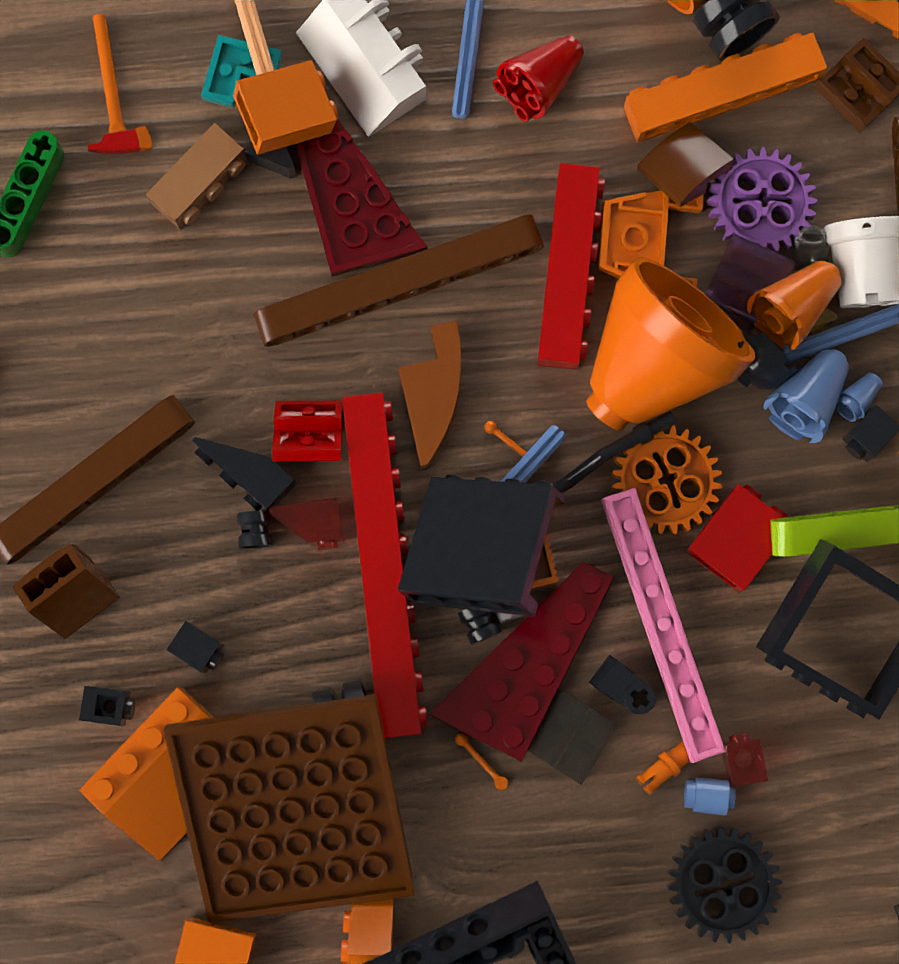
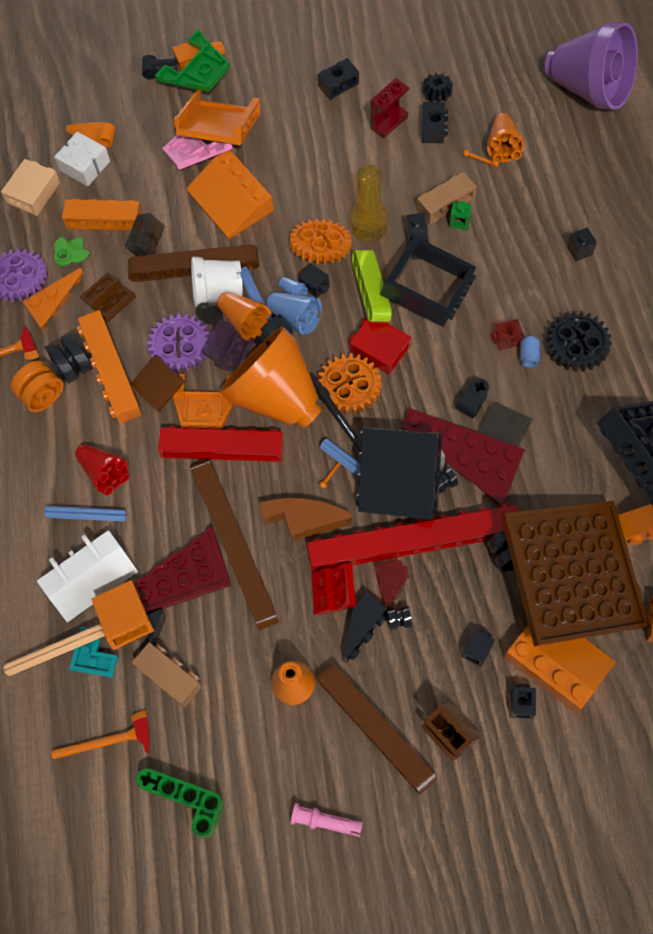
camera: 90 degrees left, 15 degrees down
(177, 367) = (293, 689): none -> orange cone
(499, 781) = (537, 465): orange hinge -> none
(663, 625) = (434, 378): bright pink tile -> none
(666, 767) = (514, 373): orange pin -> none

